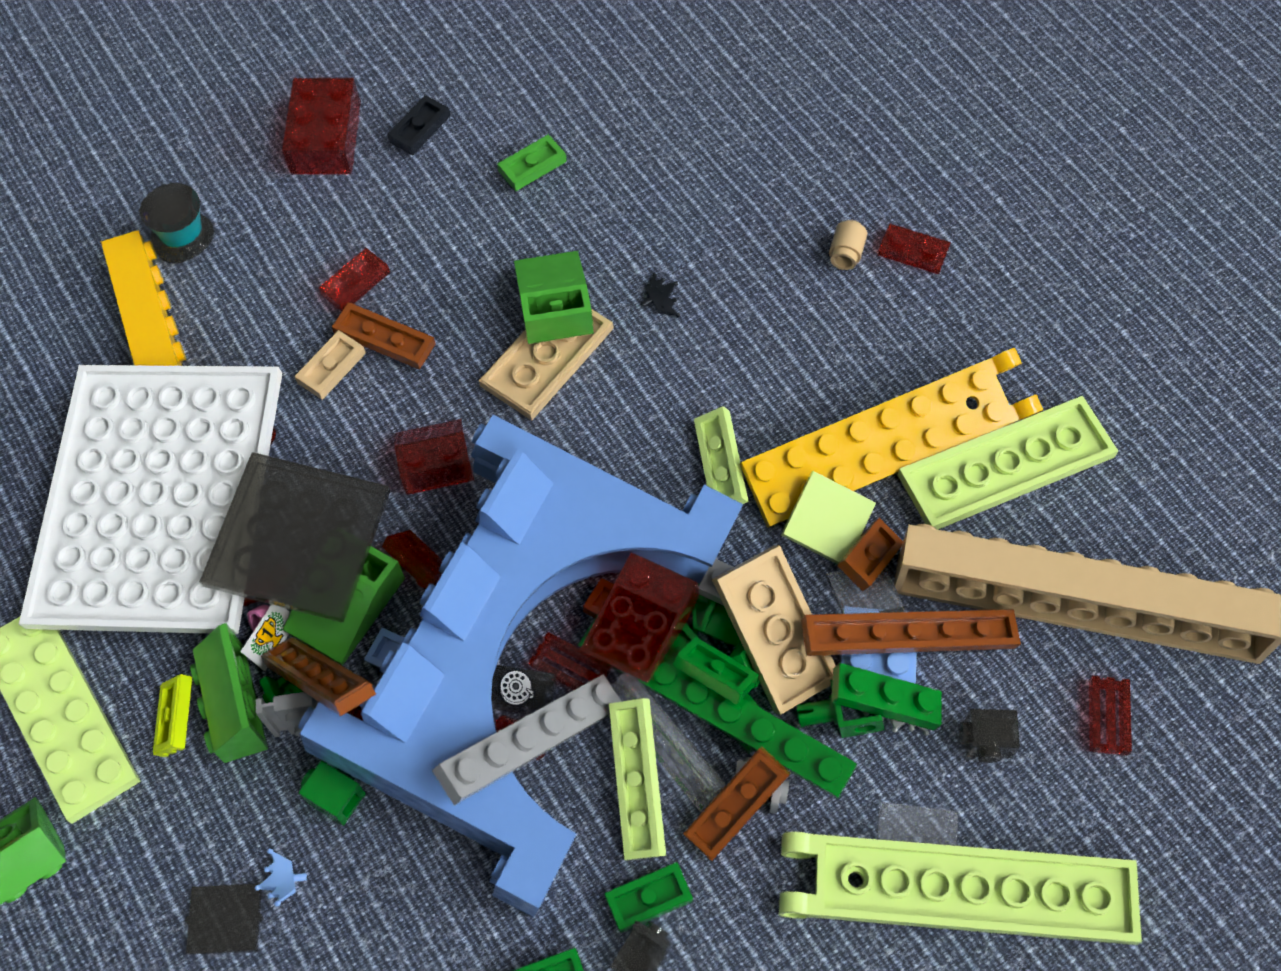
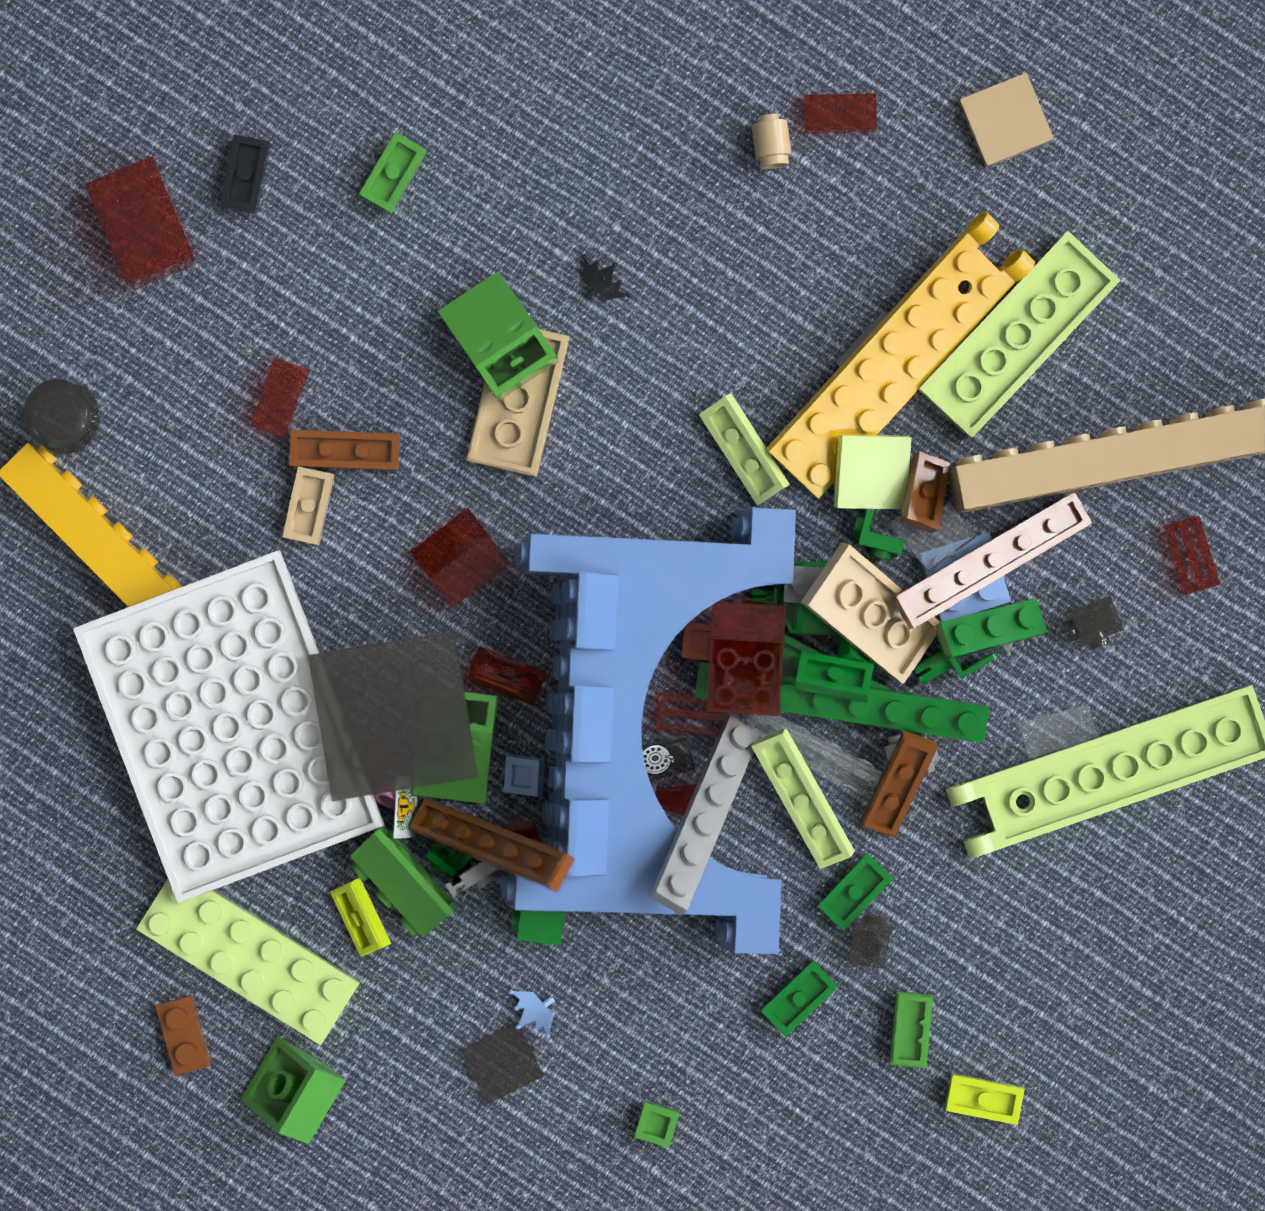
camera: 25 degrees left, 25 degrees up
(812, 583) = (880, 545): none -> green bracket
(1056, 301) = (1006, 120): none -> tan tile

